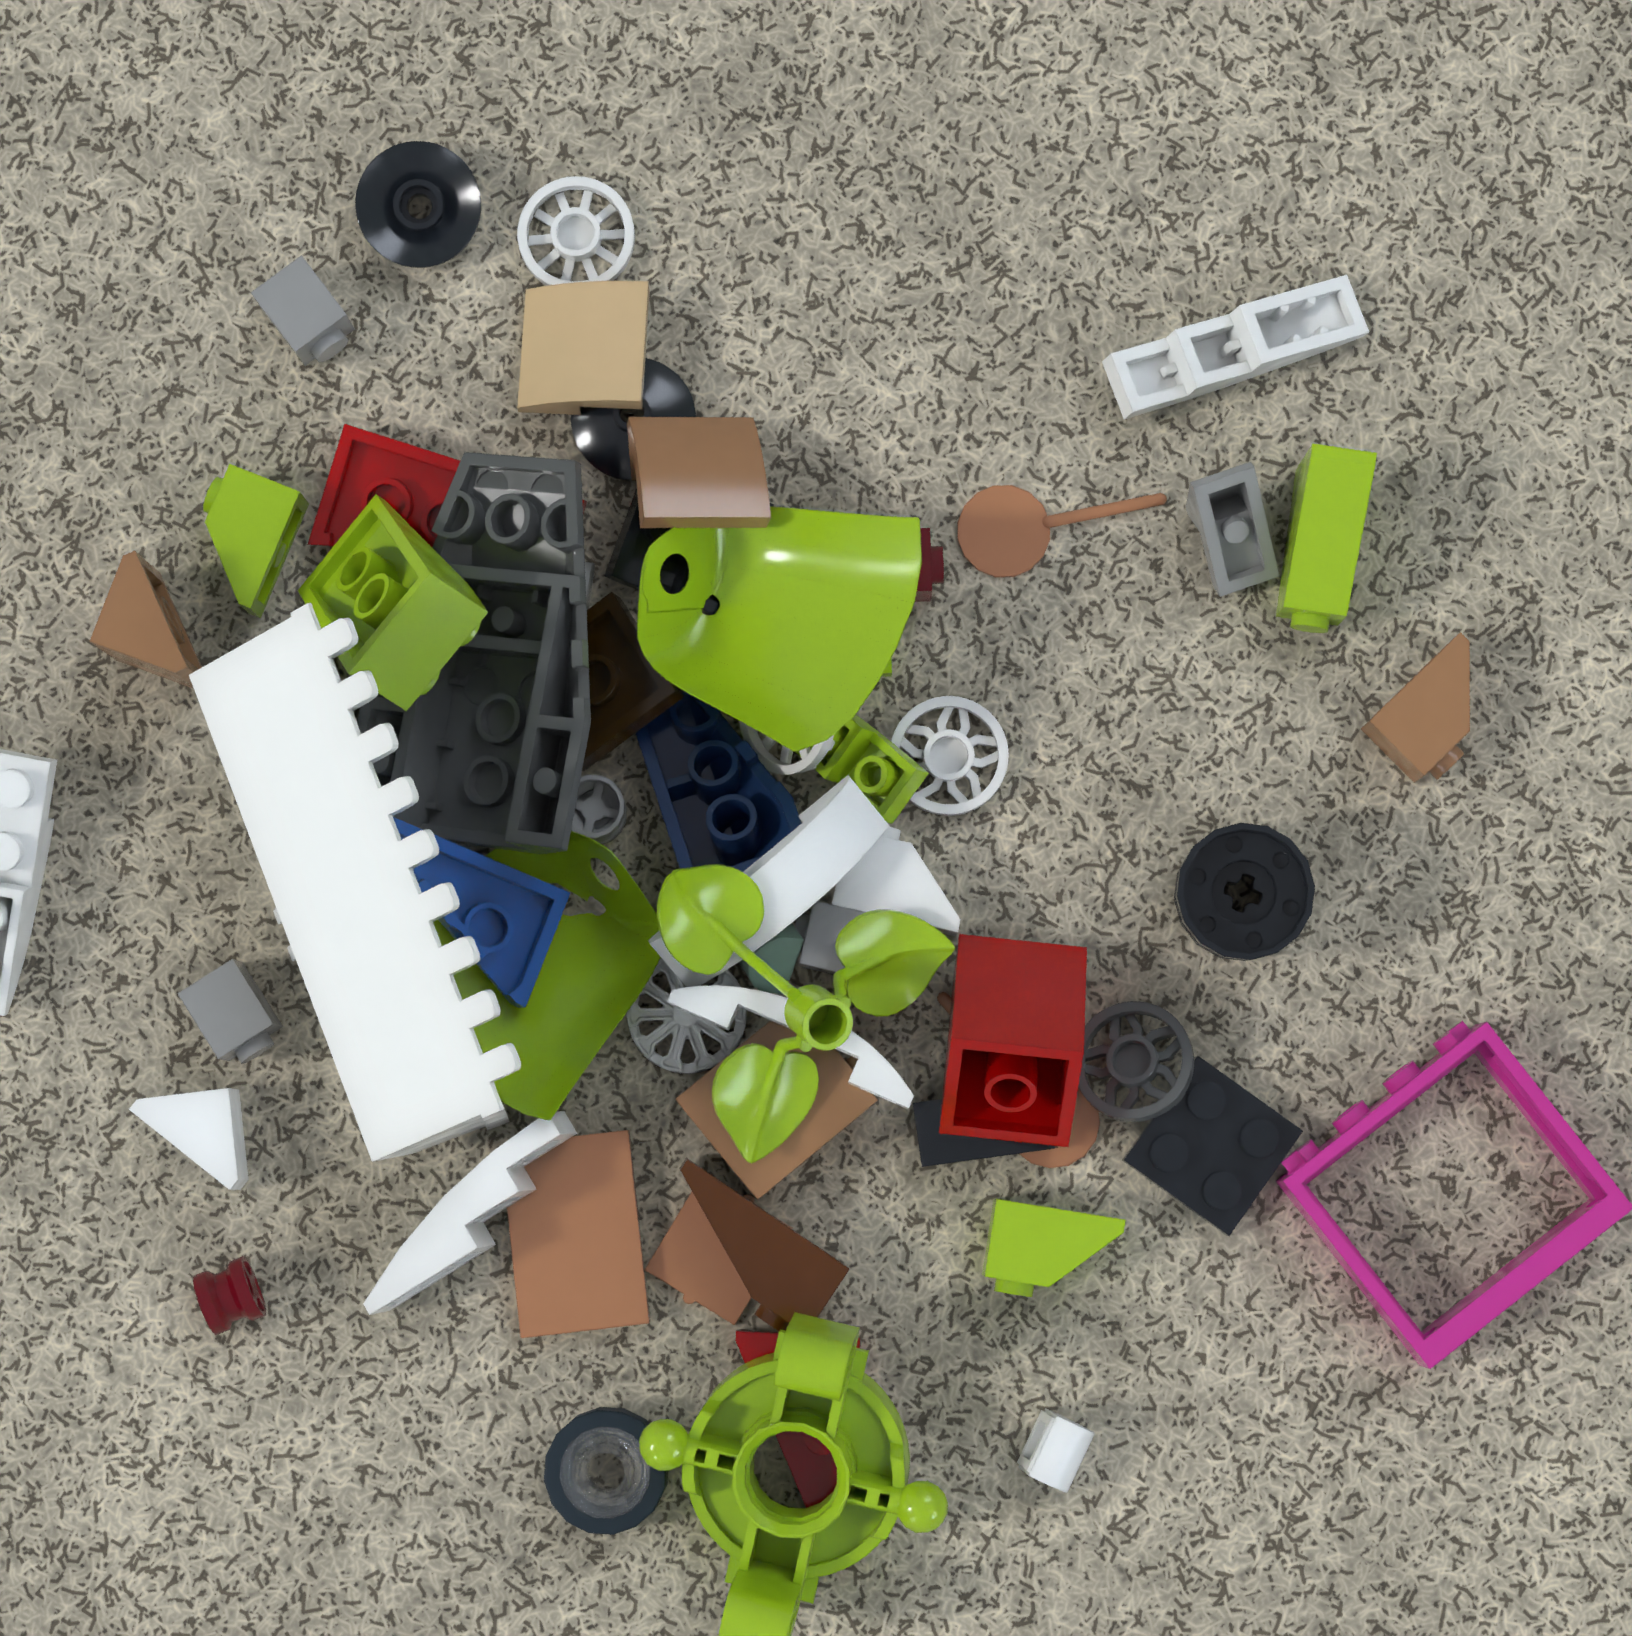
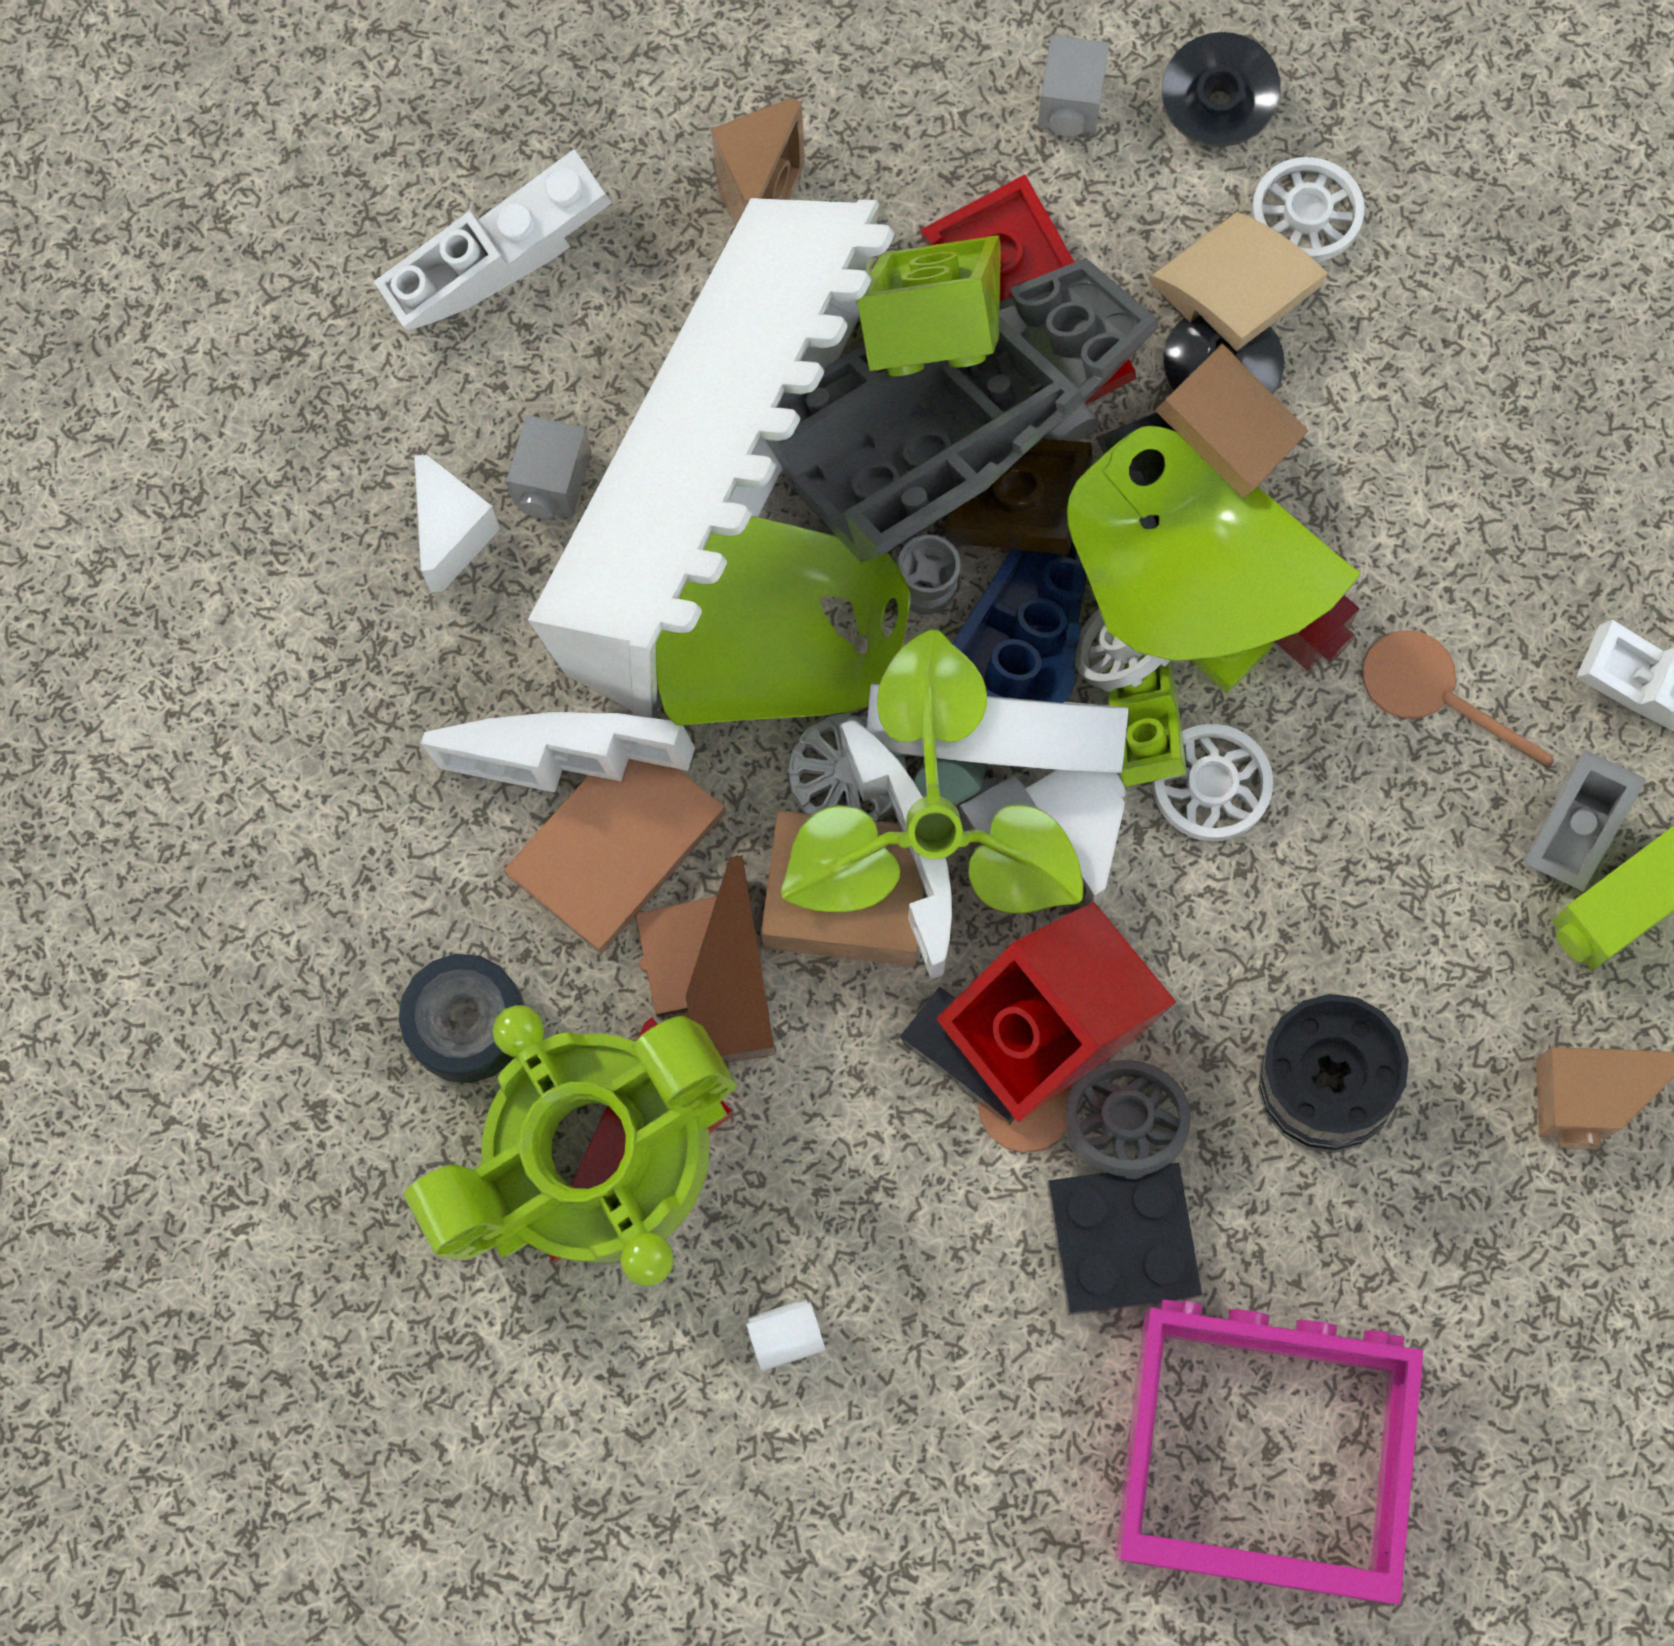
camera: 45 degrees right, 10 degrees down
(229, 1295) = (347, 645): dark red wheel -> none
(252, 531) = (903, 177): lime slope -> none
(499, 907) = (788, 561): blue wing -> none
(1041, 1244) = (928, 1176): lime slope -> none

